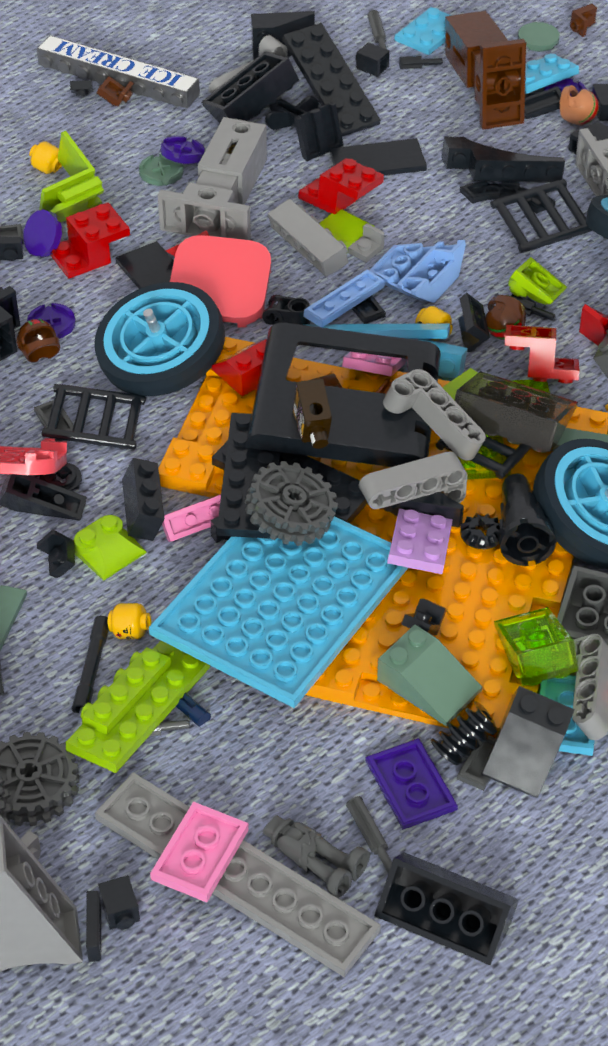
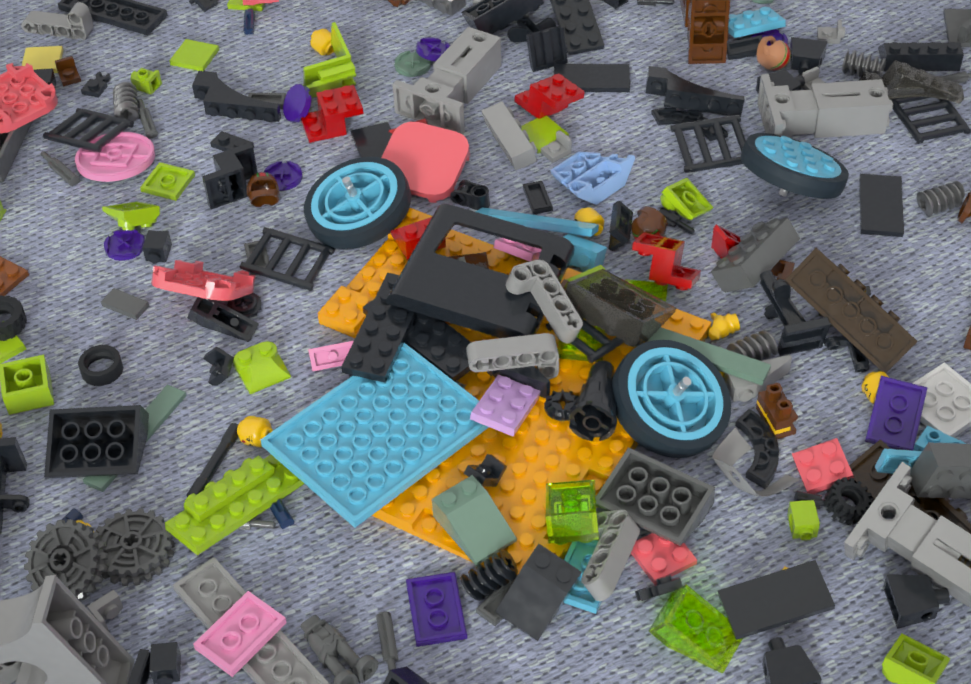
camera: 15 degrees right, 0 degrees up
(143, 499) = (299, 333): black brick -> none
(290, 503) = (405, 356): dark grey piece -> none
(315, 421) = (440, 288): dark brown torso -> none
(344, 298) = (520, 190): light blue tile -> none

